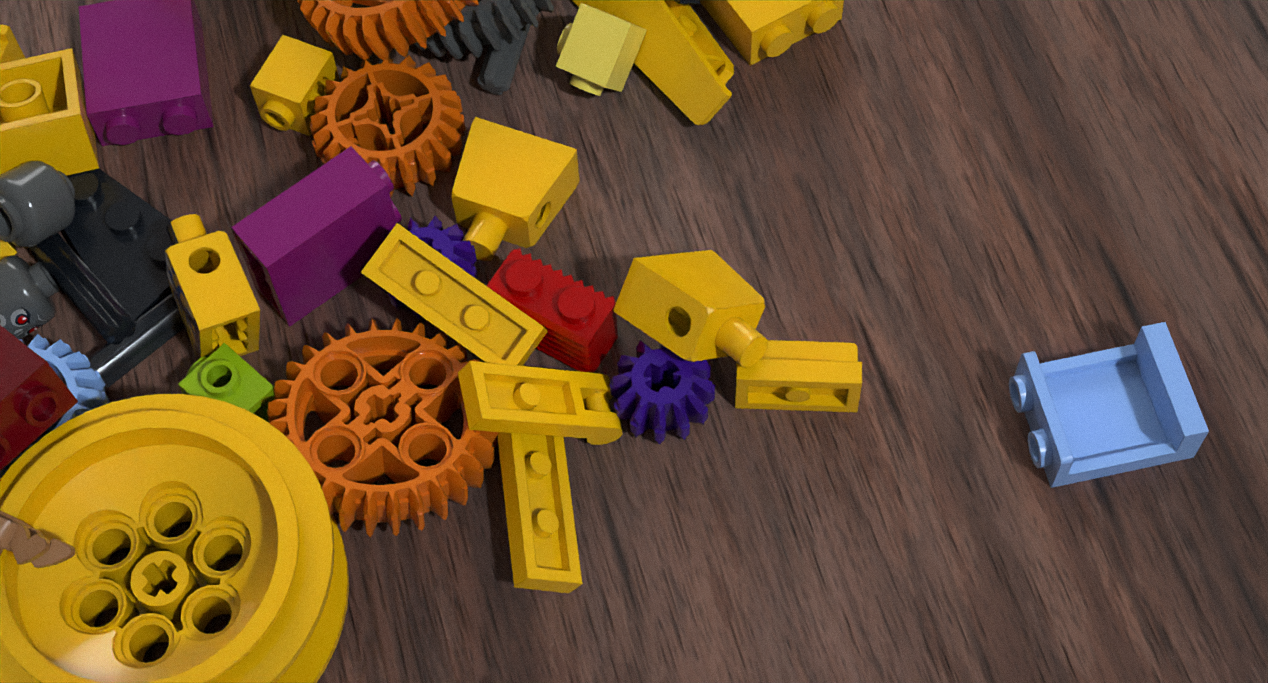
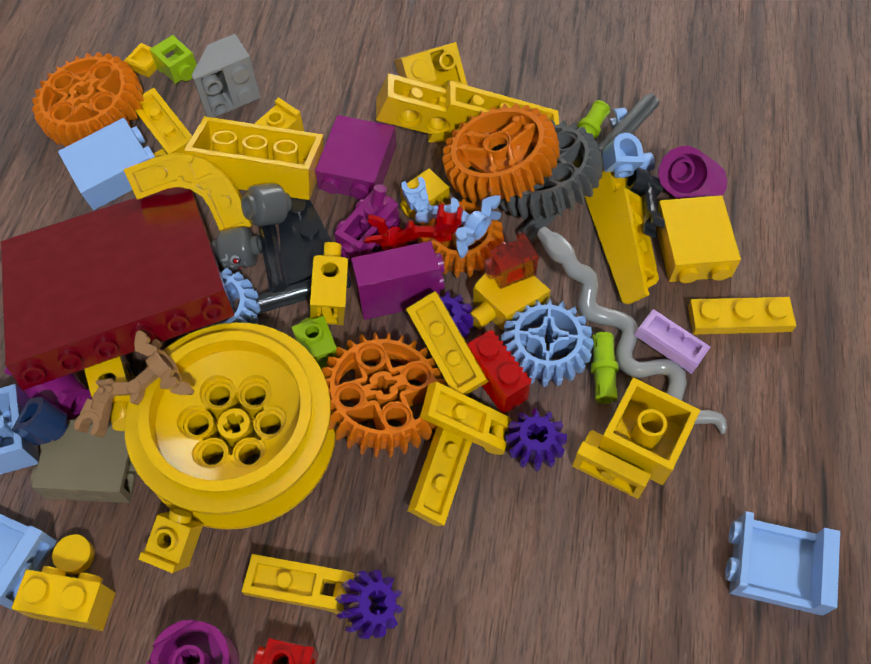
camera: 25 degrees right, 0 degrees up
(223, 165) = (351, 232): none -> magenta brick
(283, 169) = (396, 237): none -> red piece
(407, 93) = (474, 224): none -> light blue piece
(496, 128) = (512, 262): none -> clear red brick
(572, 82) = (563, 253): none -> light grey animal
(598, 50) = (590, 240): light yellow brick -> none
(626, 208) = (571, 339): none -> light blue gear
(694, 306) = (572, 403): yellow torso -> none
(711, 227) = (604, 368): none -> lime pin
(798, 152) = (672, 341): none -> lavender plate
(828, 296) = (649, 430): none -> yellow brick
(882, 71) = (741, 315): none -> yellow plate

